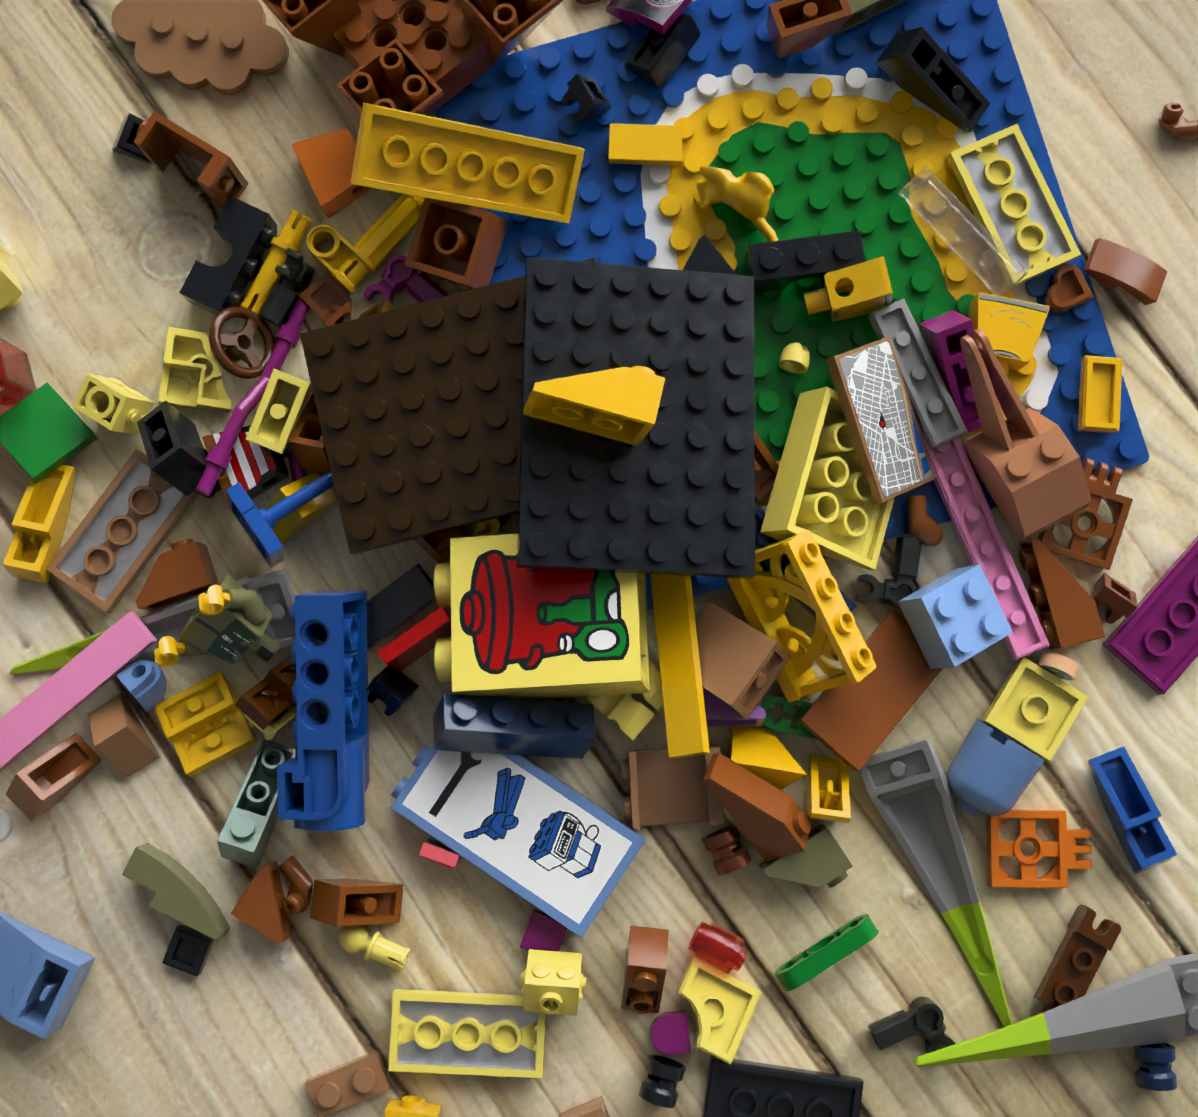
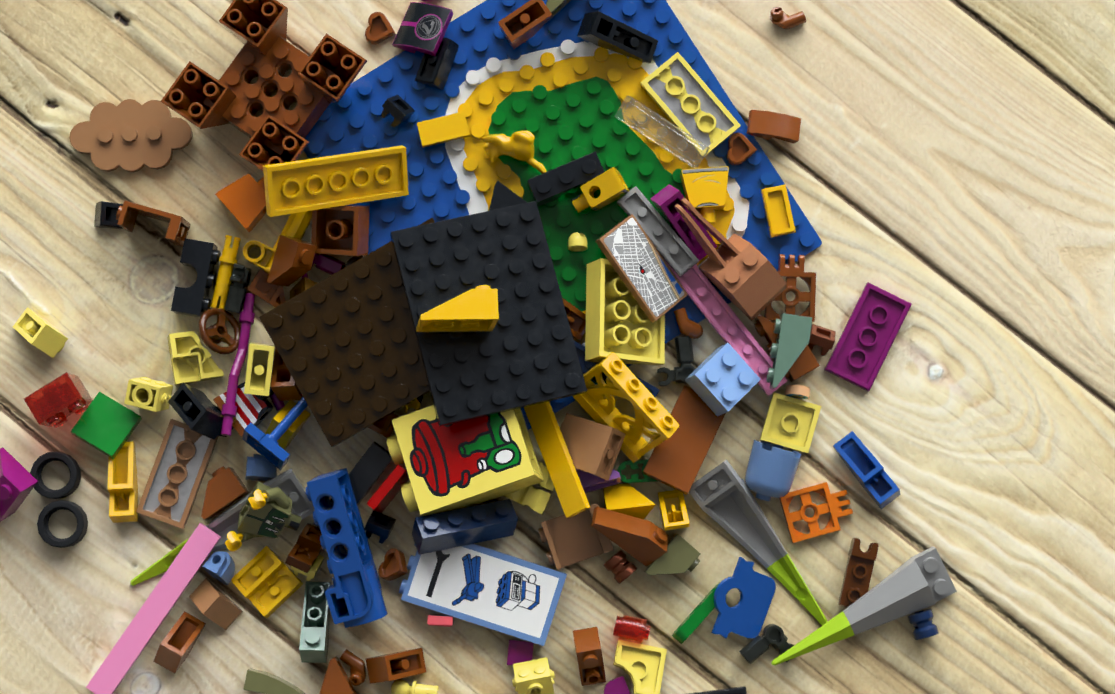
camera: 20 degrees left, 0 degrees up
(242, 557) = (259, 469): none -> medium blue piece
(371, 269) = (291, 260): none -> dark orange slope
(395, 753) = (393, 565): none -> dark orange tile
(915, 950) = (755, 599): none -> blue piece
(1077, 586) = (792, 338): none -> sand green slope

